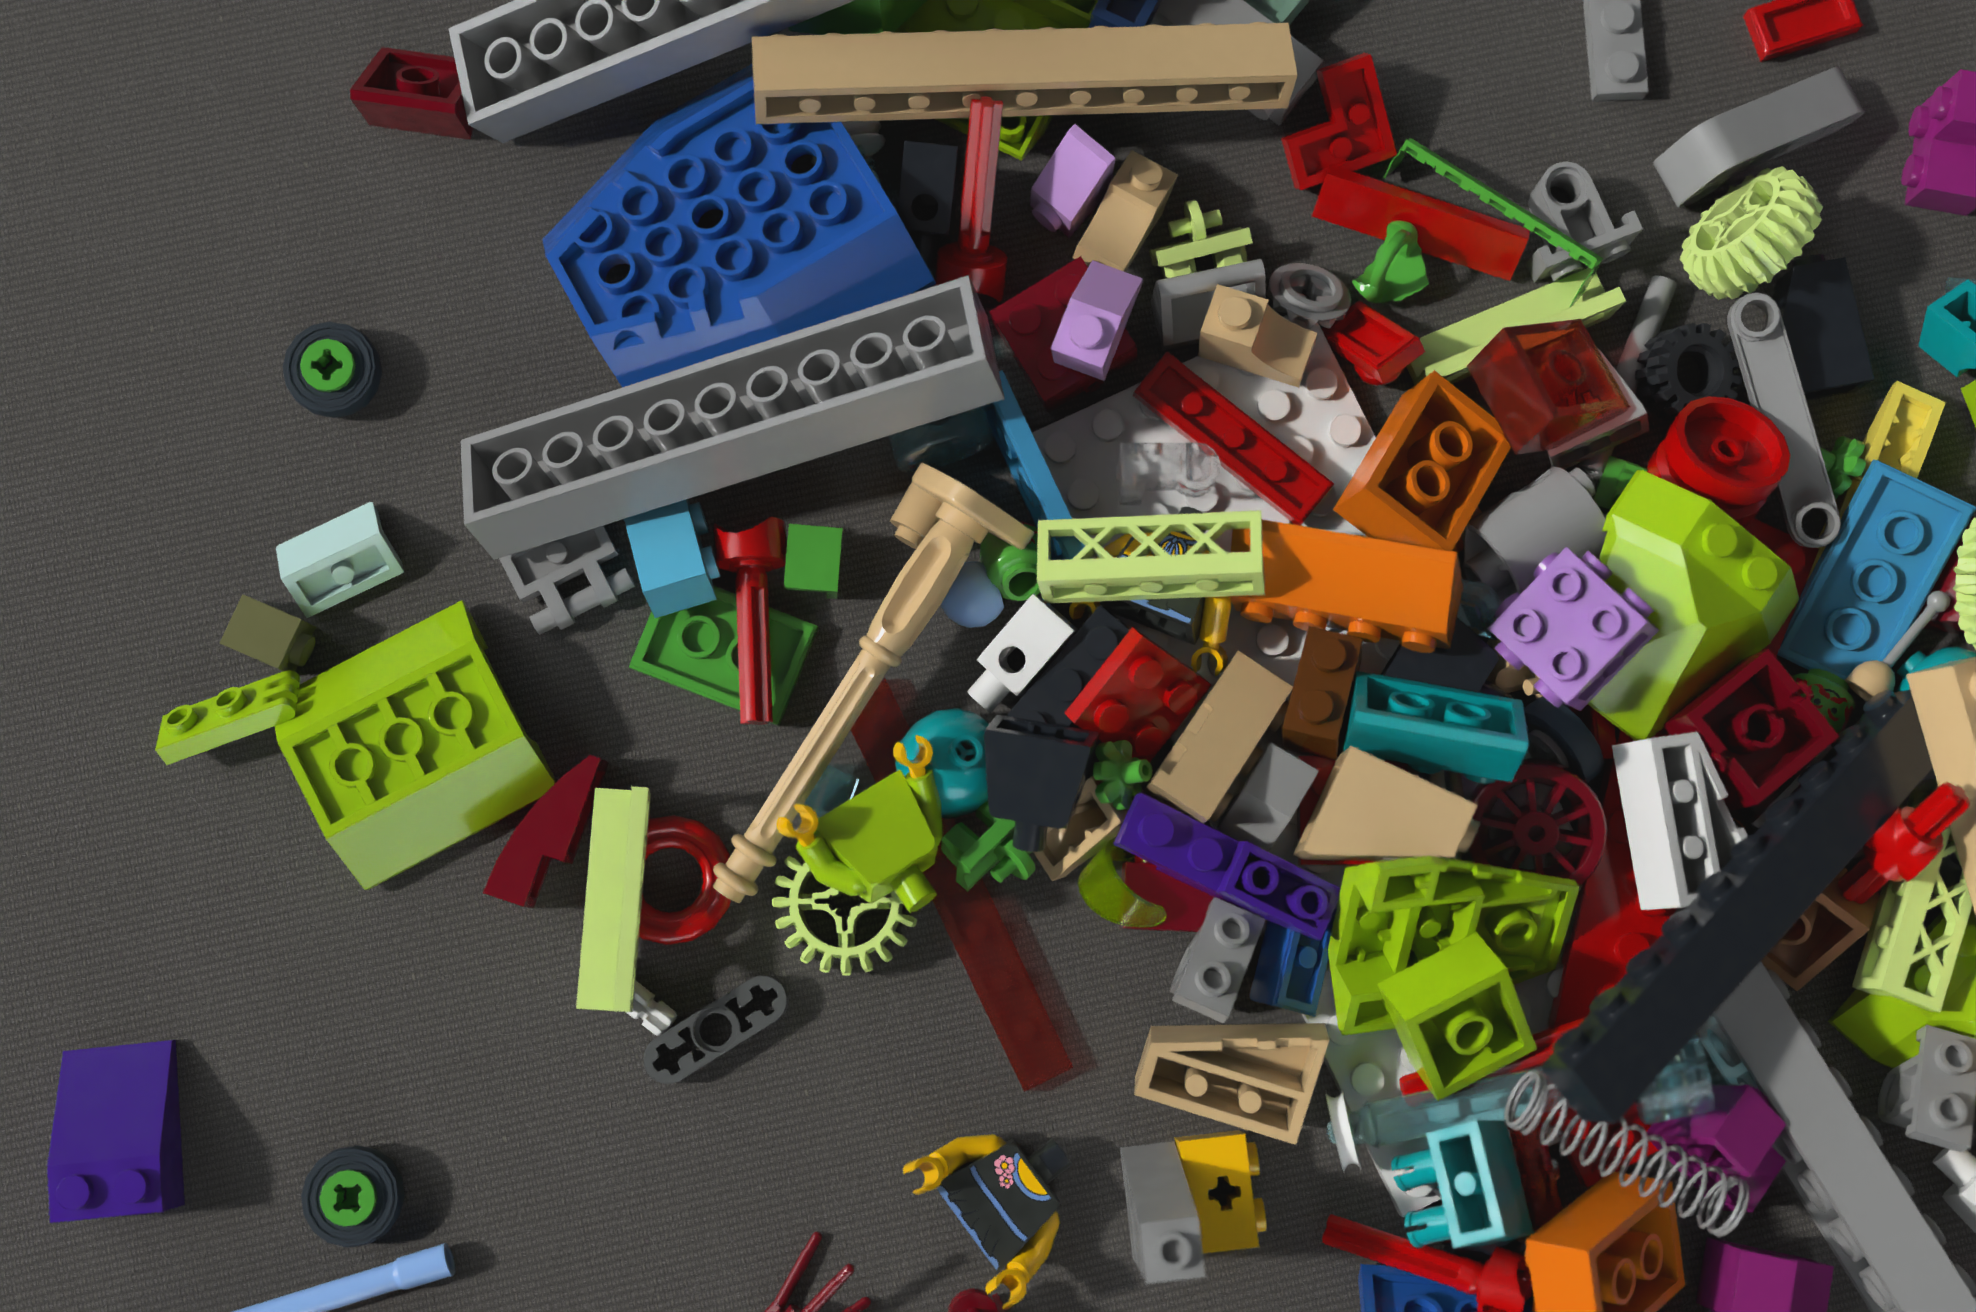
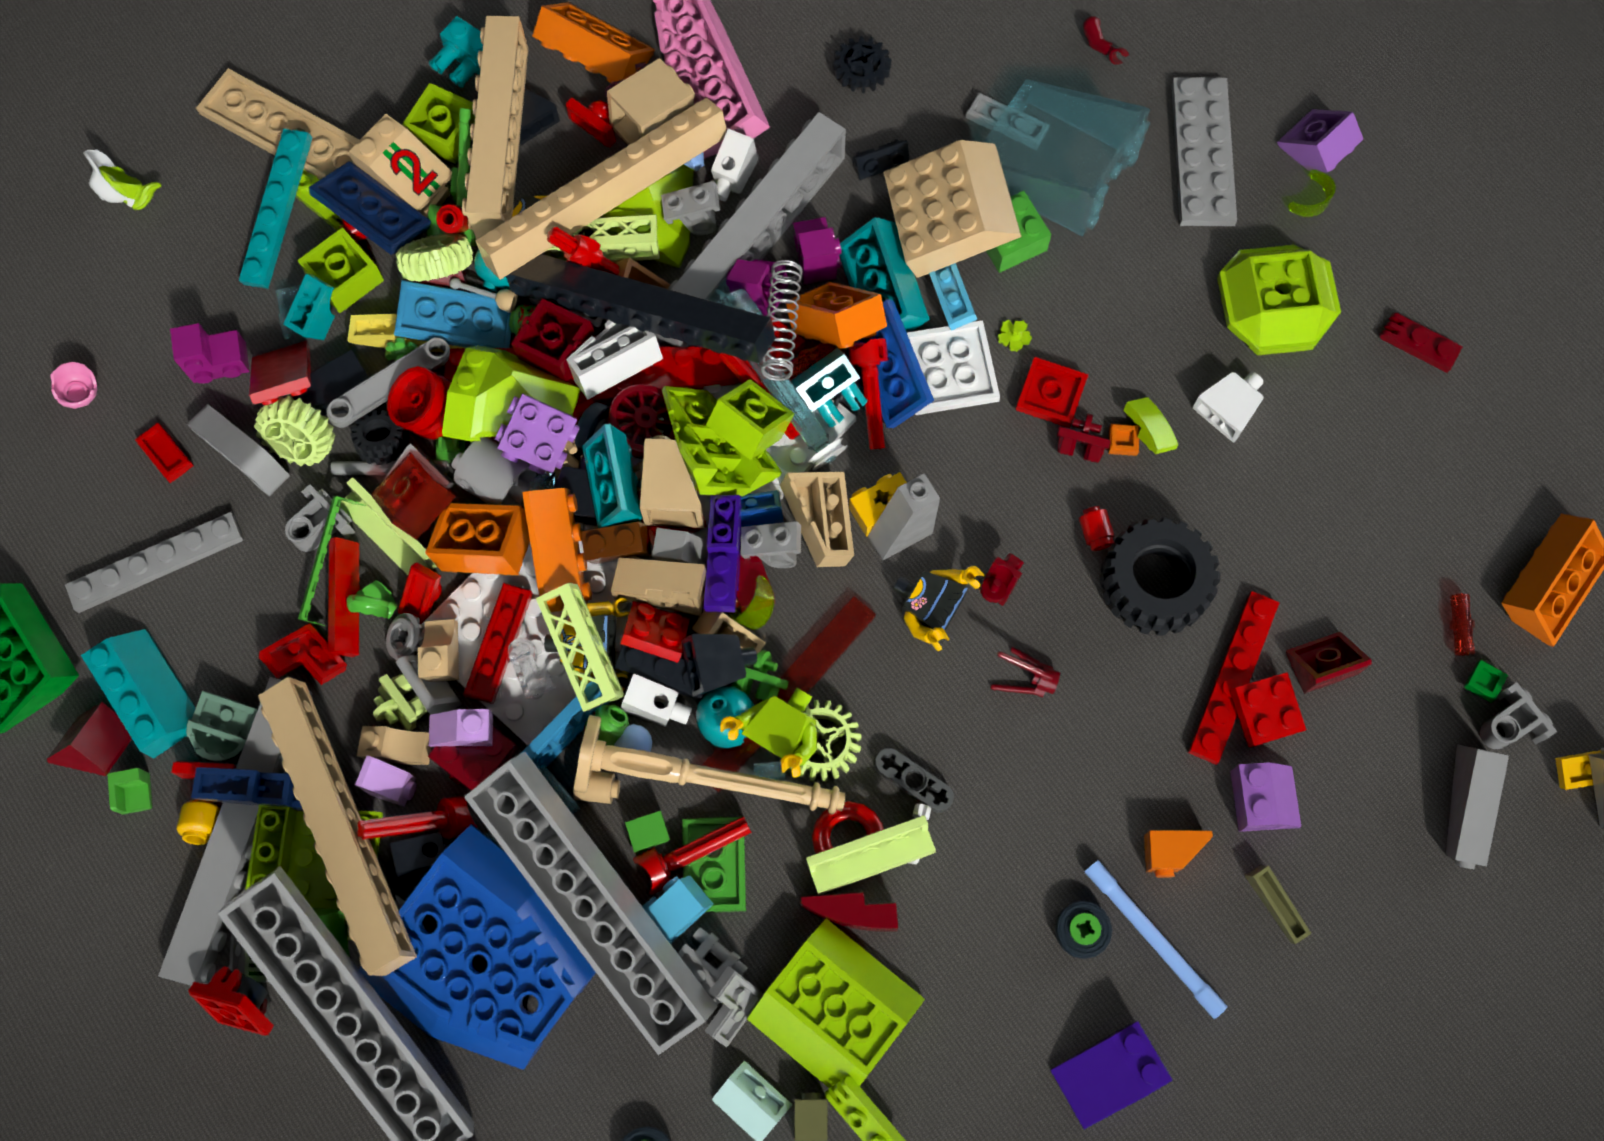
camera: 110 degrees left, 10 degrees down
(491, 589) = (738, 1001): none -> light grey tile
(1119, 773) = (698, 622): bright green plant -> none
(1868, 240) = (280, 373): none -> red tile

